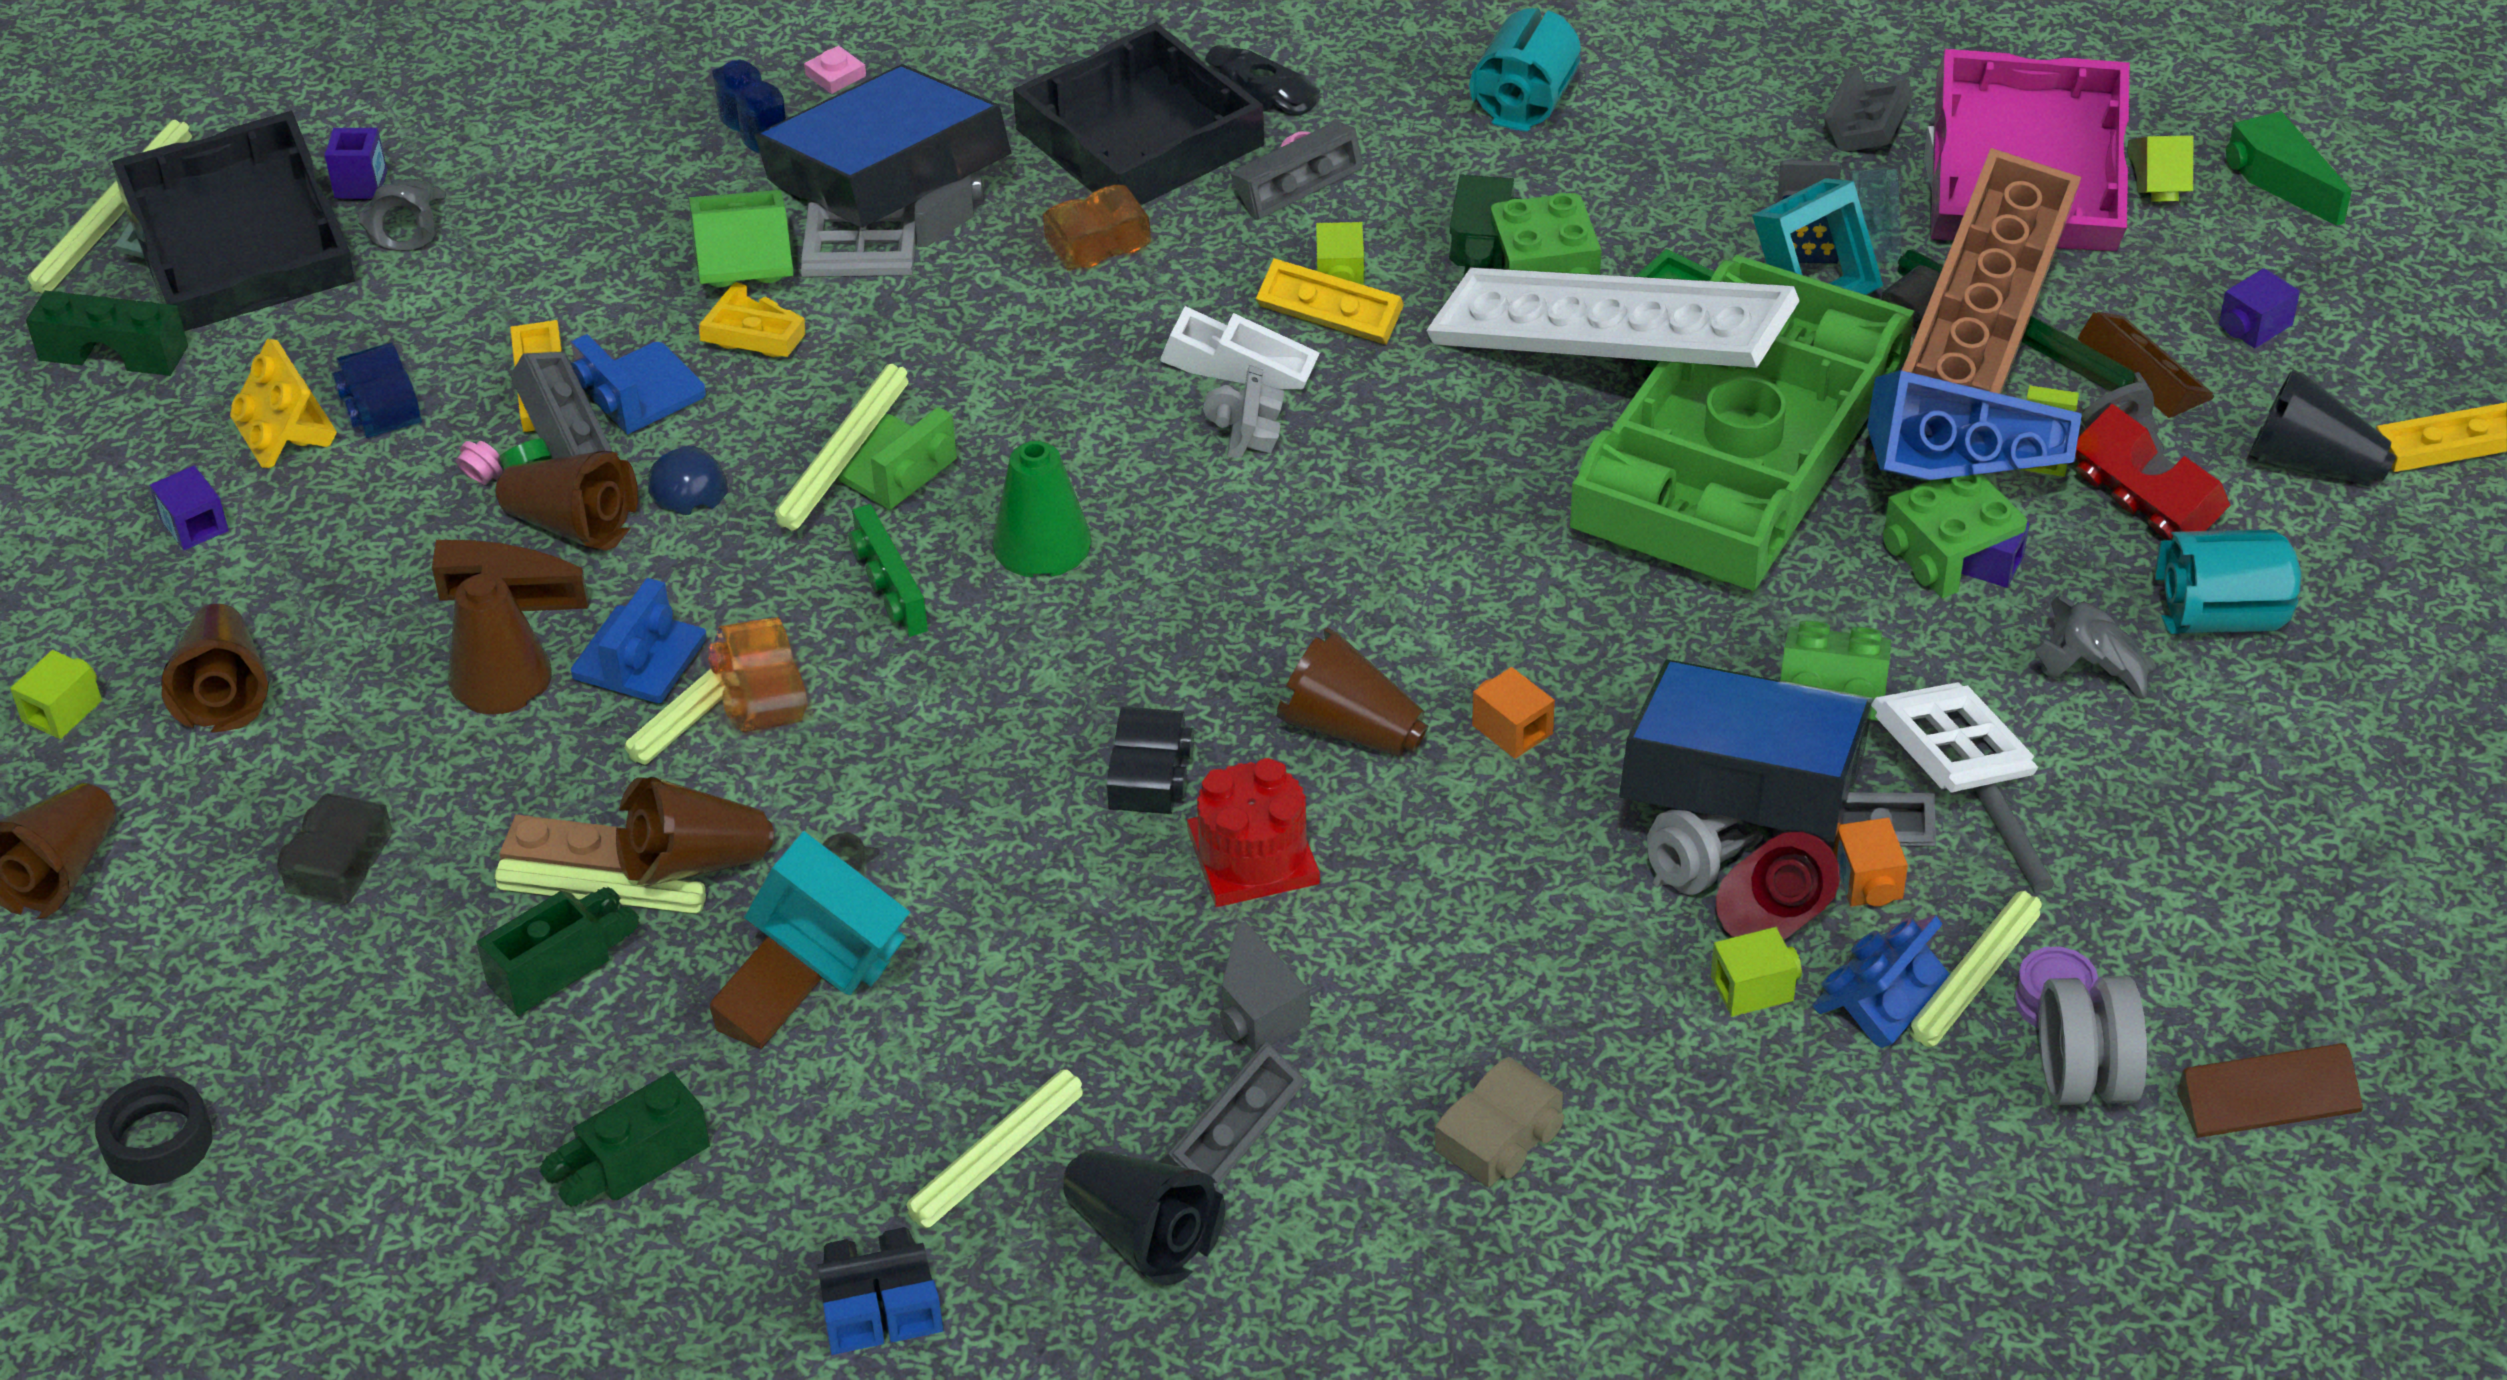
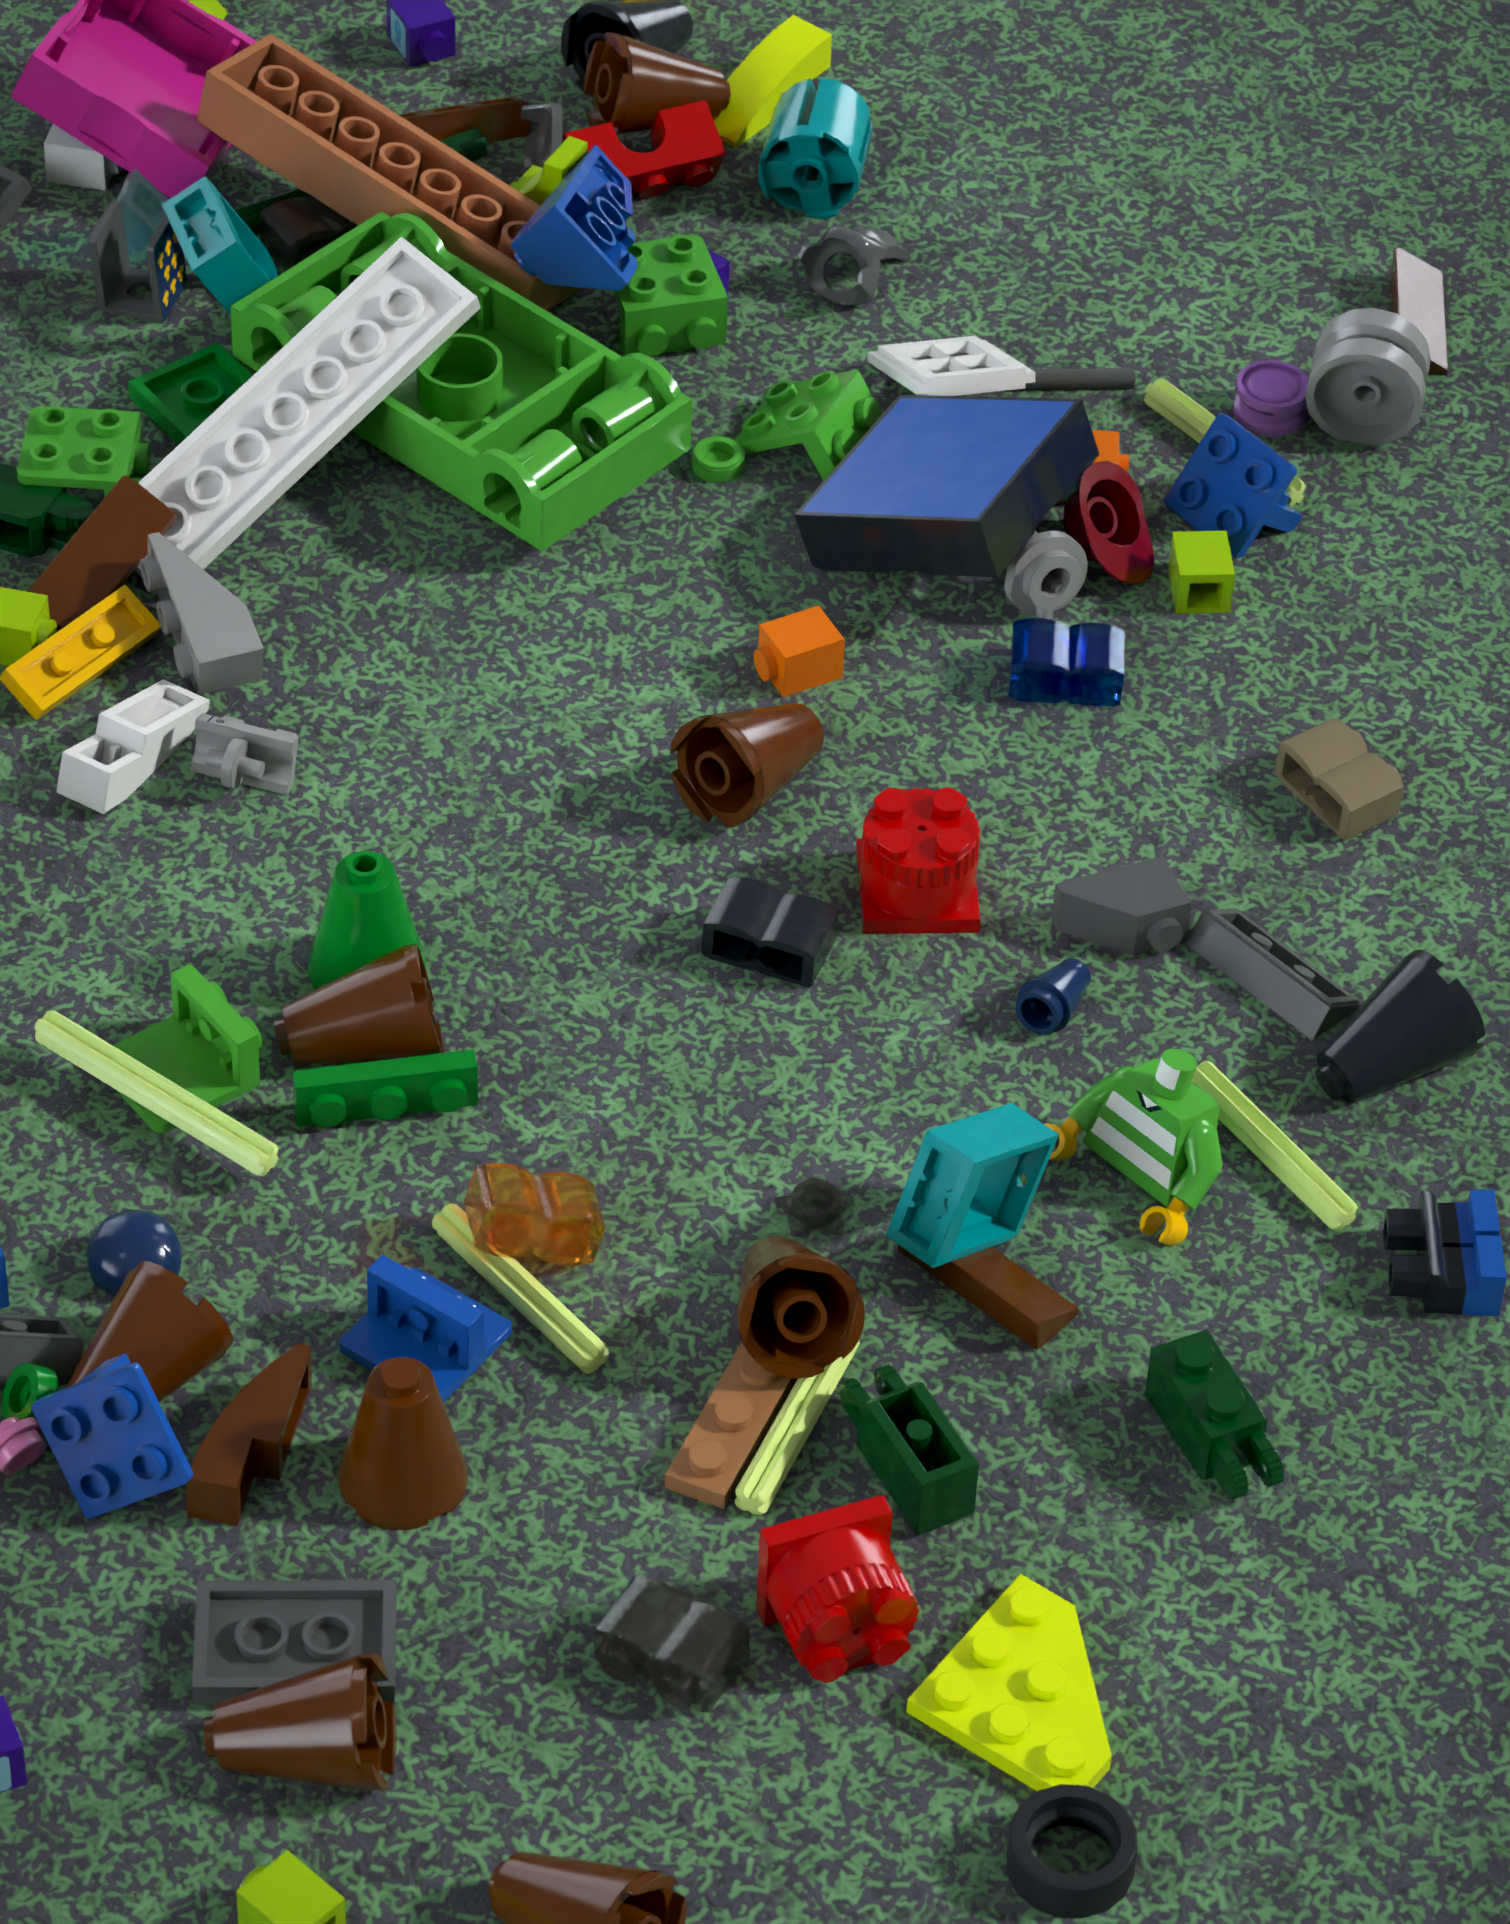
camera: 80 degrees left, 0 degrees up
(316, 646) = (283, 1628): none -> dark grey plate
(322, 1077) = (1021, 1692): none -> neon yellow plate
(377, 921) = (836, 1588): none -> red piece
(474, 494) = (112, 1438): none -> blue bracket
(947, 1050) = (1154, 1132): none -> bright green torso
(962, 546) = (365, 1015): none -> reddish brown cone
(1133, 961) = (1052, 997): none -> dark blue cone
(1381, 352) = (209, 623): none -> light grey slope
(1436, 274) = (103, 551): none -> reddish brown slope
(1581, 895) = (1066, 662): none -> clear blue brick
(1767, 620) = (717, 459): none -> bright green tile
(2232, 446) = (638, 80): none -> reddish brown cone
(2338, 539) = (782, 59): none -> neon yellow slope

